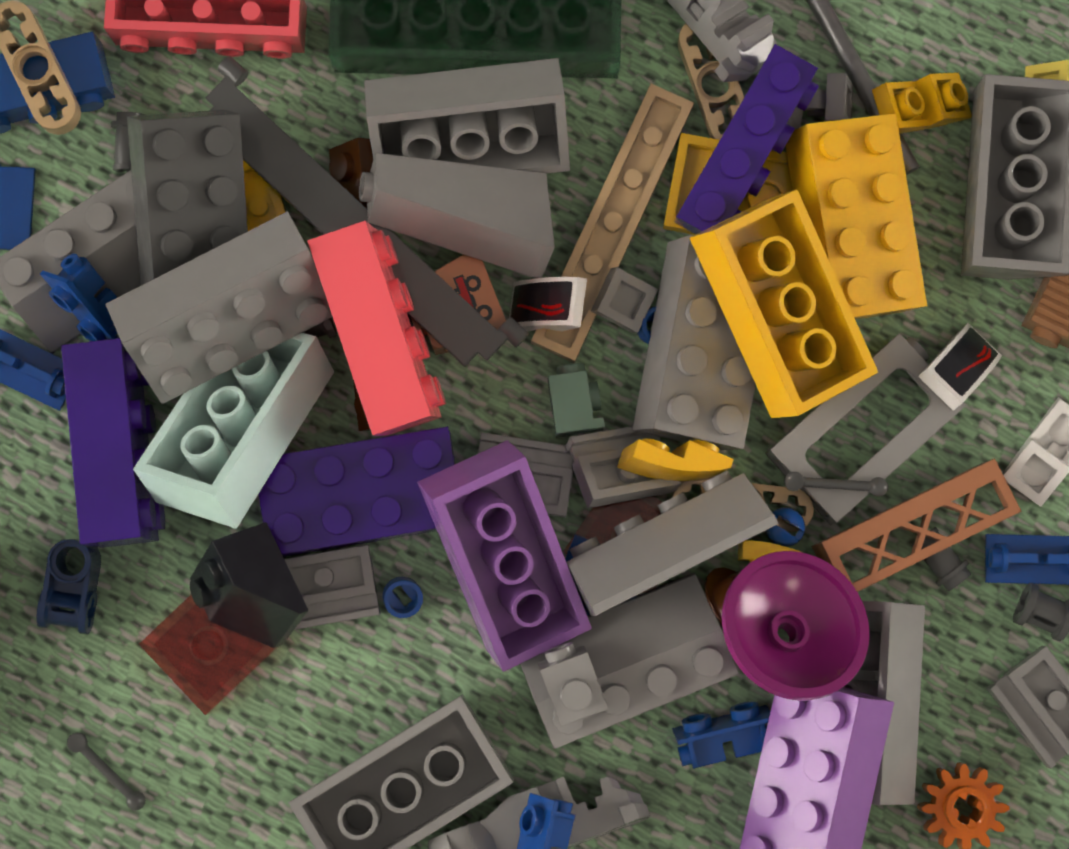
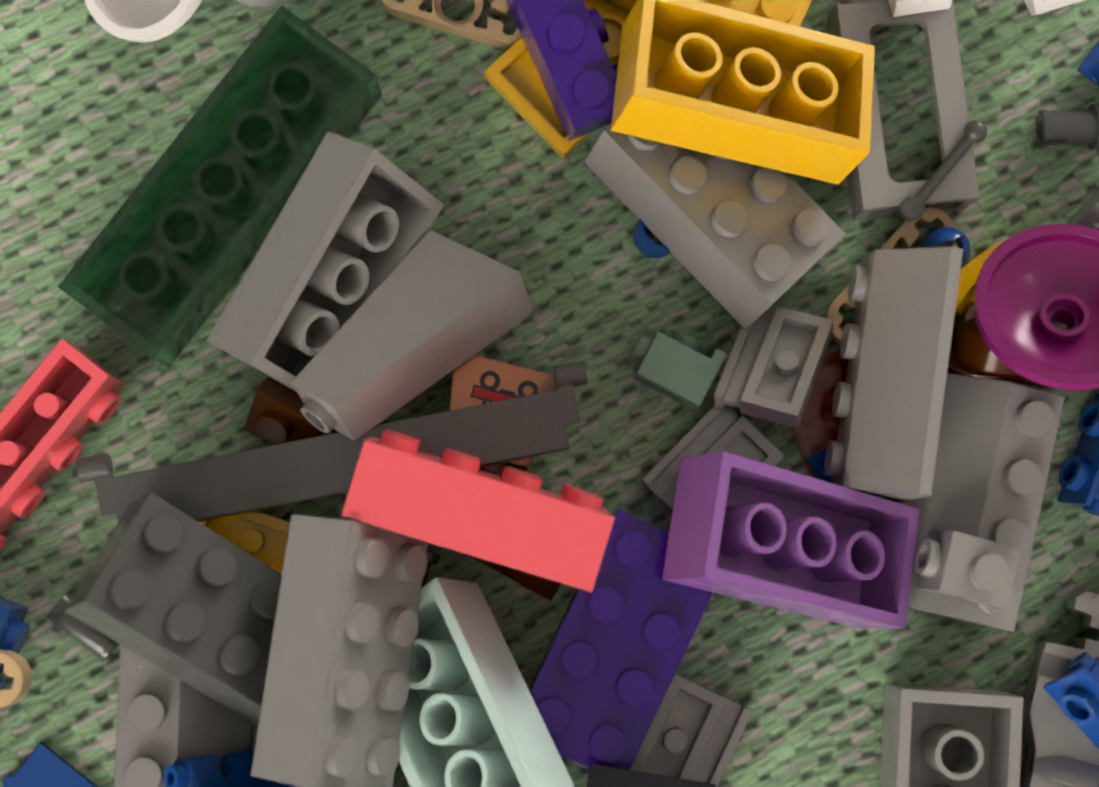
camera: 65 degrees left, 0 degrees up
(392, 601) = (750, 688): blue hinge -> none
(548, 303) = (563, 320): slope -> none
(620, 208) = (524, 202): tan plate -> none
(624, 300) = (611, 244): light grey tile -> none
(688, 462) = (814, 307): yellow slope -> none
(913, 508) = (1011, 121): nougat fence -> none

